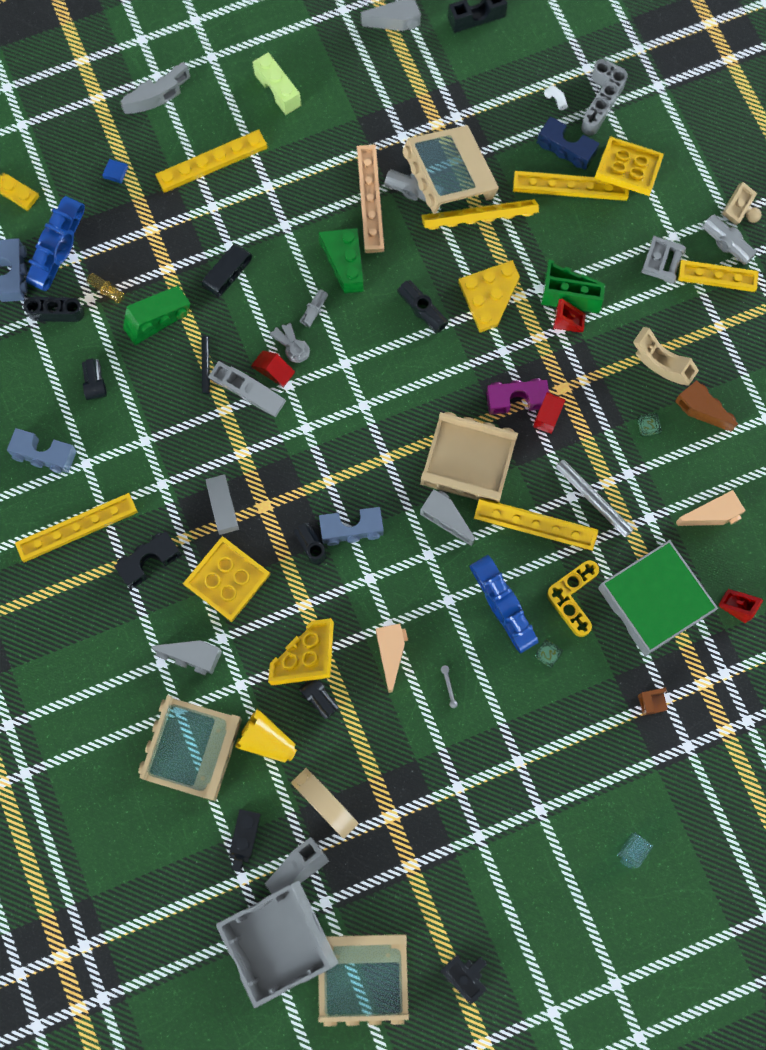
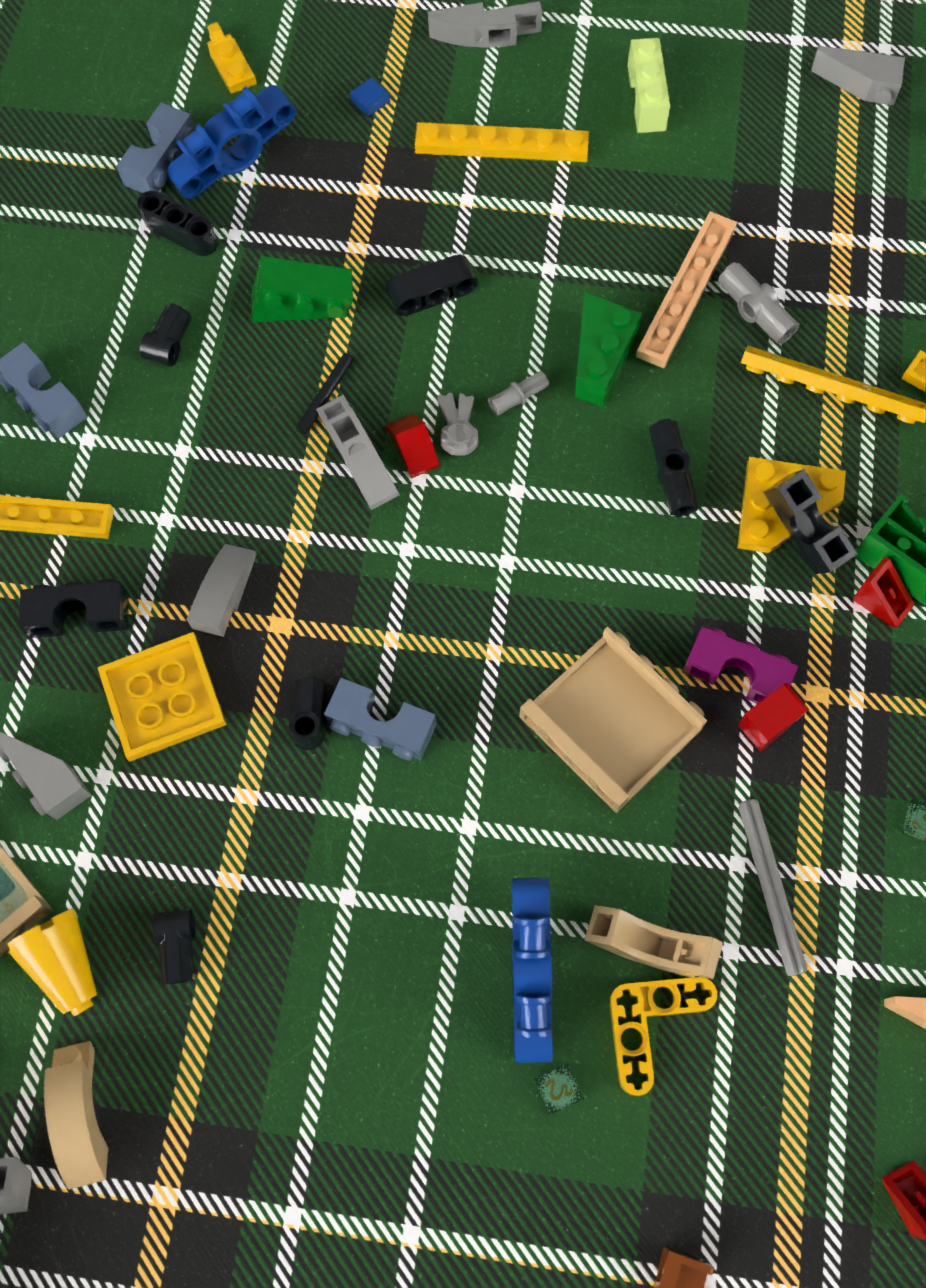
camera: 35 degrees right, 5 degrees down
(105, 287) = (260, 230): clear yellow axle -> none
(305, 656) = (196, 872): yellow plate -> none
(391, 648) = (322, 939): light nougat slope -> none
(443, 513) = (525, 775): light grey slope -> none
(445, 669) = (386, 1017): light grey hinge -> none
(449, 166) = (825, 296): panel -> none
(498, 293) = (819, 542): none -> arch
(536, 524) = (655, 872): yellow plate -> none
(555, 559) = (653, 945): none -> tan arch
(657, 598) = (786, 1108): green tile -> none

